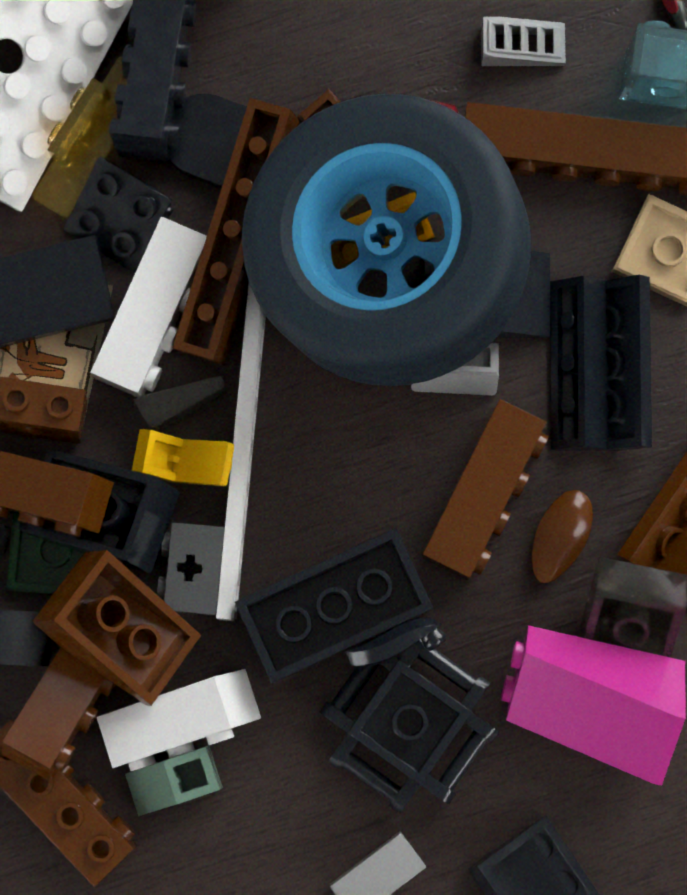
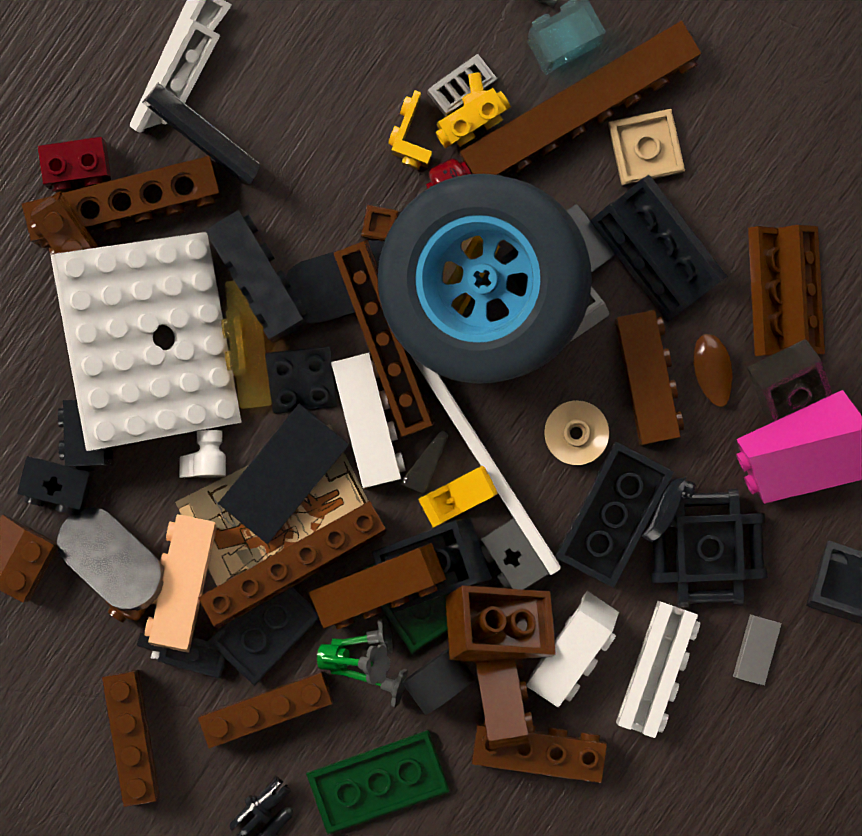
camera: 35 degrees left, 5 degrees up
(174, 781) = (599, 688): sand green slope -> none
(252, 811) = (657, 669): none -> white brick
(366, 467) = (593, 427): none -> tan dish
(414, 70) = (411, 154): none -> yellow bracket
(514, 77) = (478, 110): none -> yellow brick

